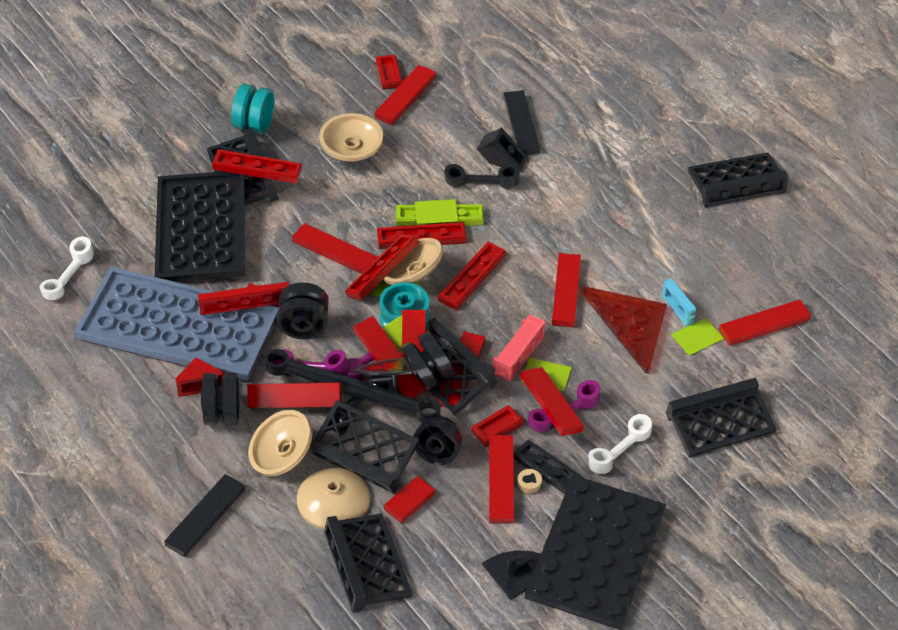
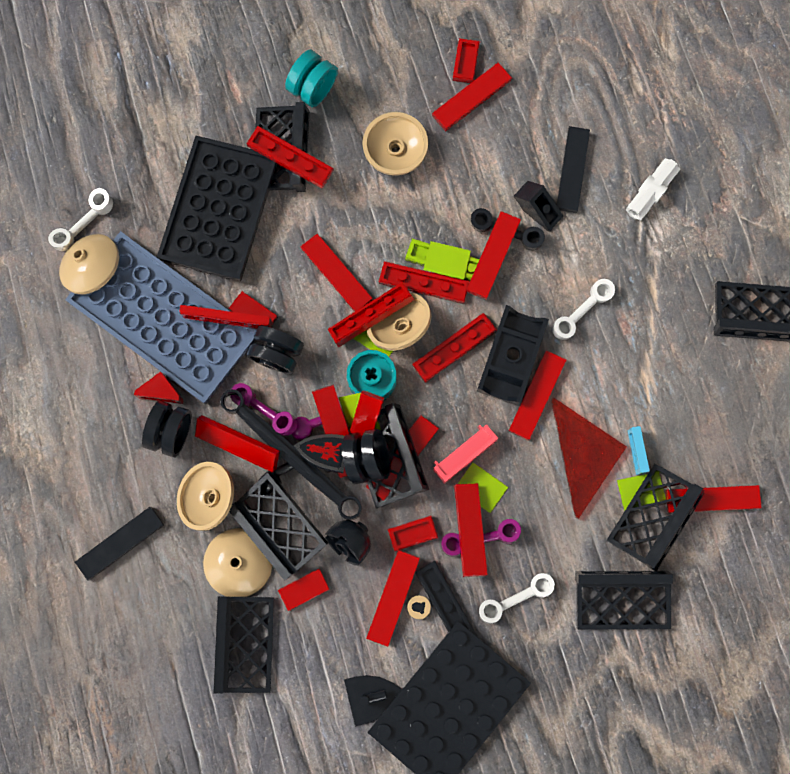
camera: 25 degrees right, 30 degrees up
(88, 298) = (89, 264): none -> tan dish
(478, 195) = (493, 255): none -> red tile
(533, 279) = (506, 377): none -> black piece
(588, 200) = (600, 292): none -> white piece
(599, 117) = (653, 189): none -> white piece
(736, 345) = (673, 527): none -> black fence

